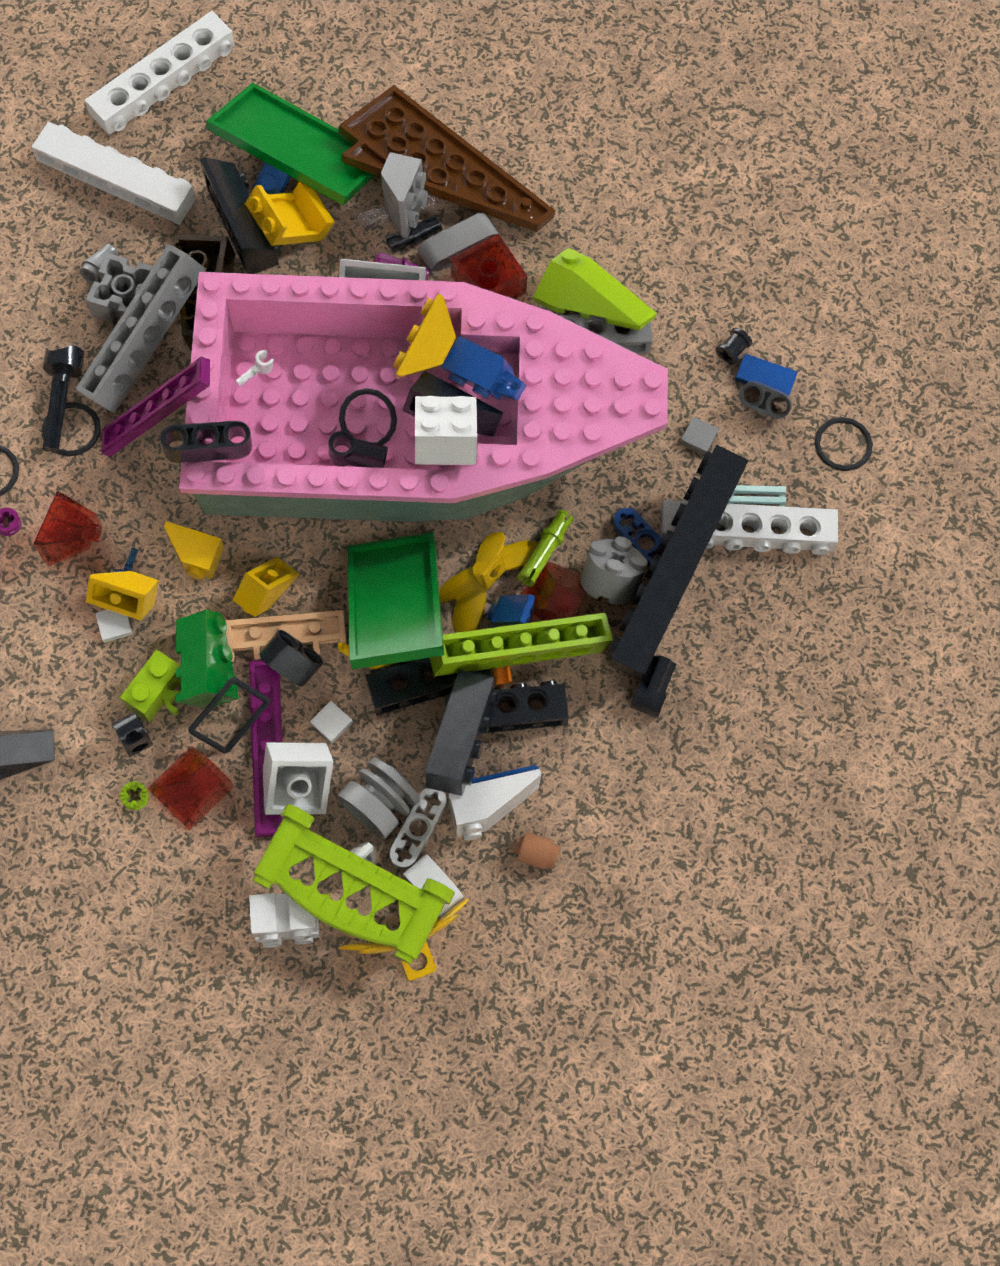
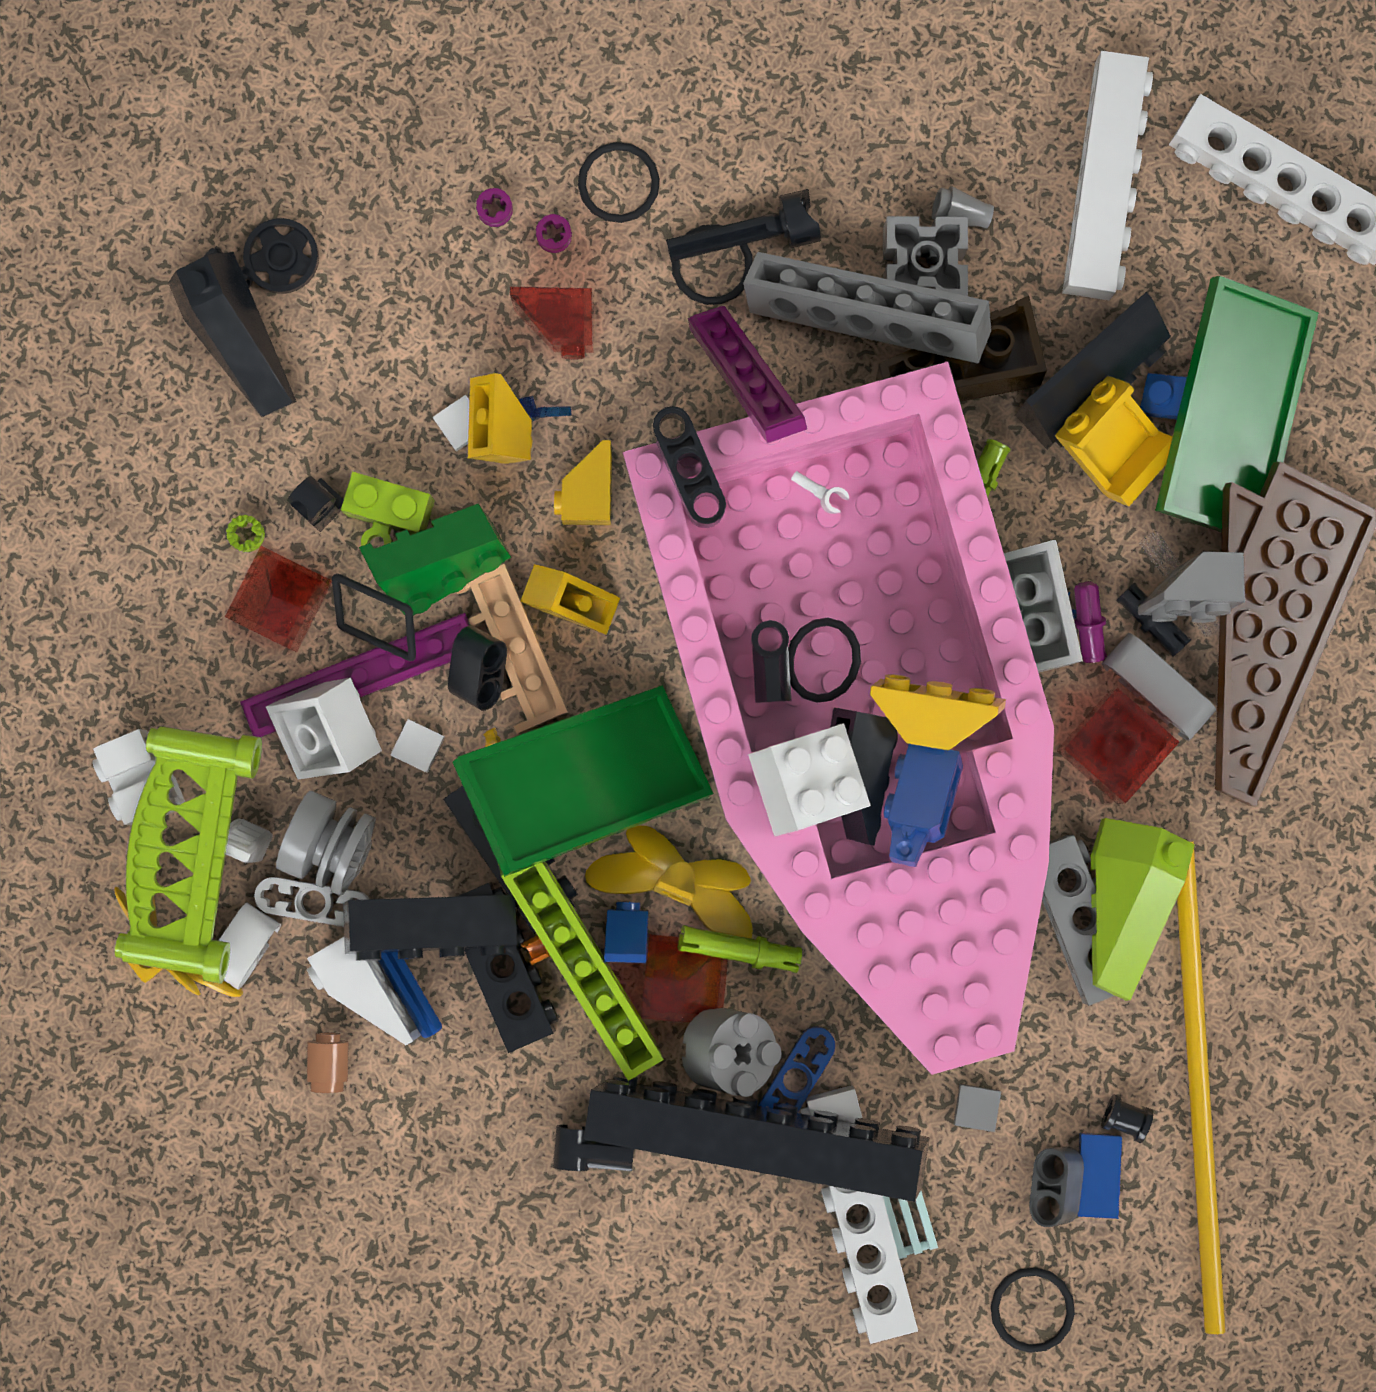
camera: 75 degrees right, 15 degrees up
(747, 305) = (1200, 1104): none -> yellow piece

